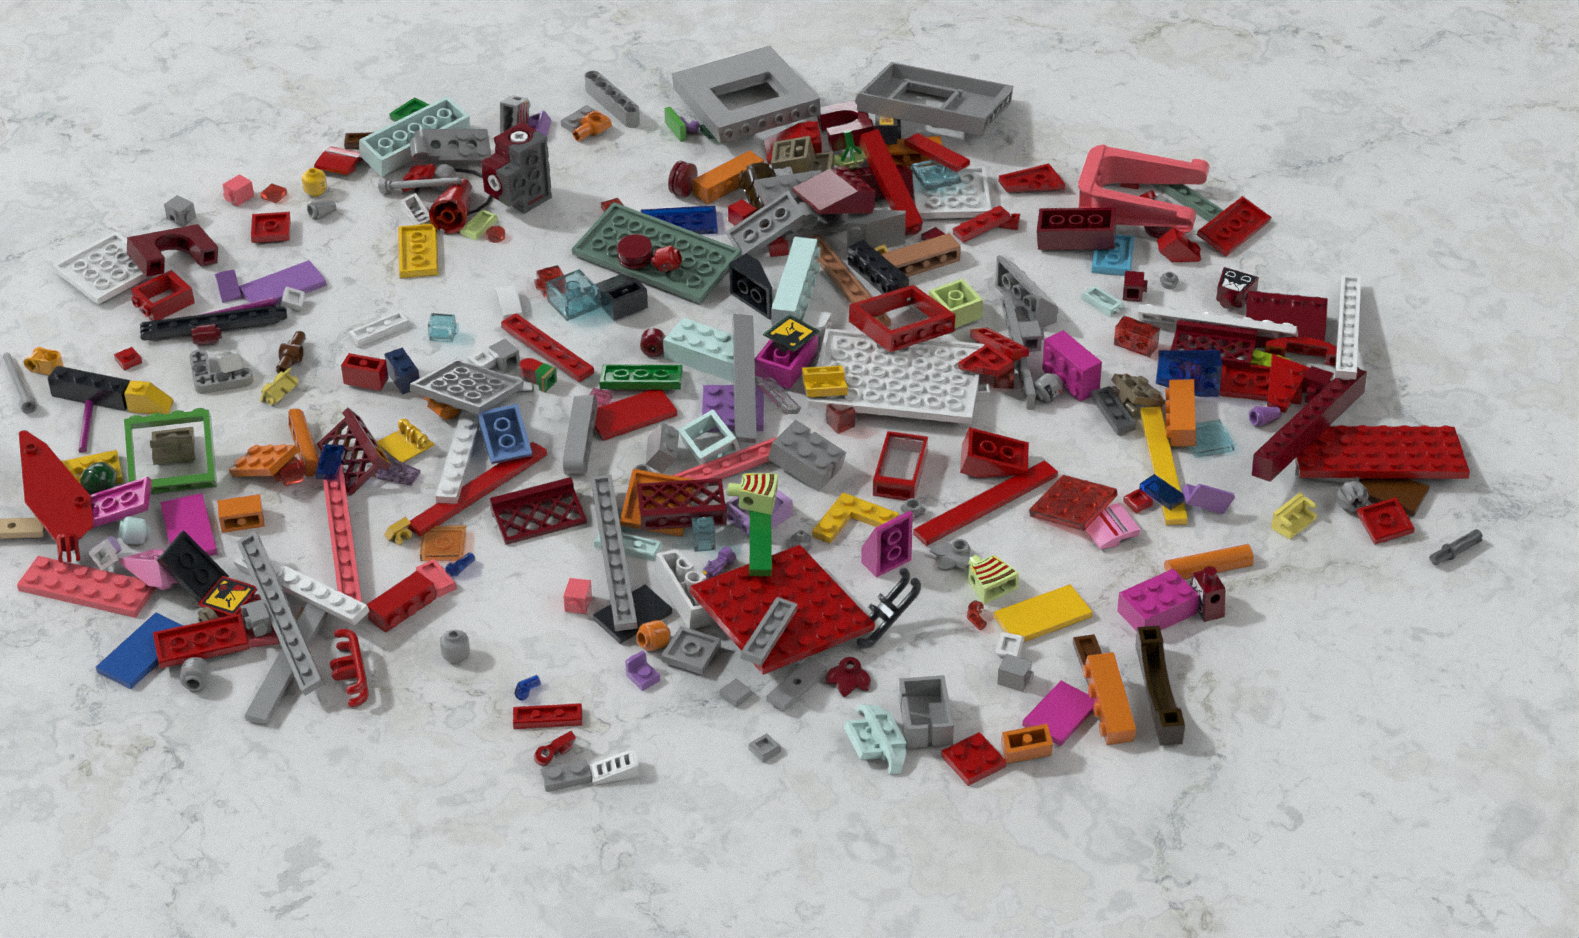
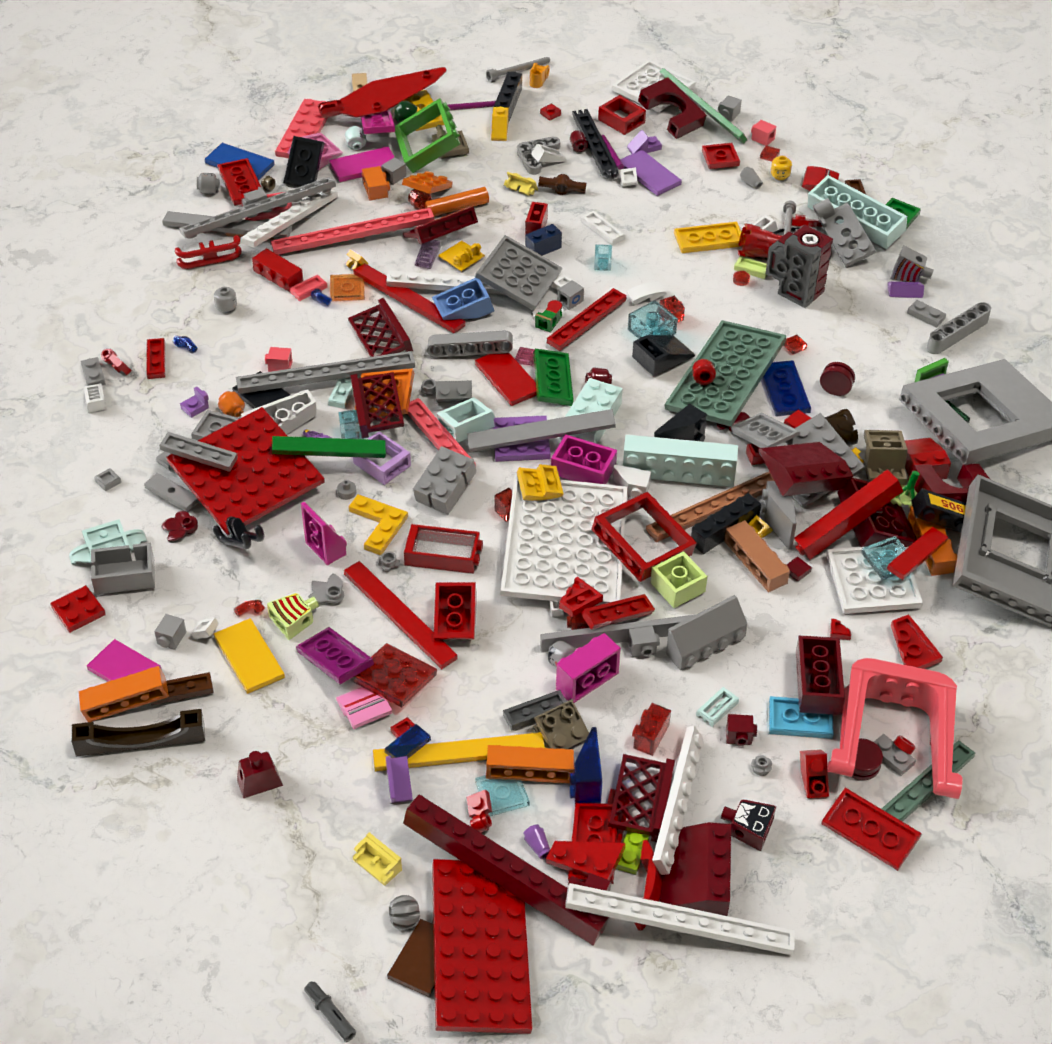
camera: 85 degrees right, 5 degrees up
(105, 552) = (333, 127): white leg -> none
(200, 218) = (706, 107): none -> tile
(216, 491) = (395, 170): none -> light grey brick
(228, 596) = (283, 184): piece -> none
(330, 462) = (421, 211): clear blue tile -> none
(591, 125) = (915, 320): orange piece -> none
(634, 251) = (715, 350): dark red head -> none
(723, 178) = (864, 415): orange brick -> none
(756, 492) = (372, 438): yellowish green torso -> none
(777, 395) = (533, 459): clear hinge -> none
(790, 334) = (593, 450): piece -> none
(981, 223) = (824, 603): red plate -> none
(1026, 743) = (77, 636): orange brick -> none
(1052, 540) = (334, 655): none -> magenta tile
(1158, 601) = (249, 730): dark pink brick -> none
(1221, 559) = (312, 784): orange brick -> none
(1229, 450) = (478, 808): none -> red plate
(1385, 520) = (372, 945): red tile -> none

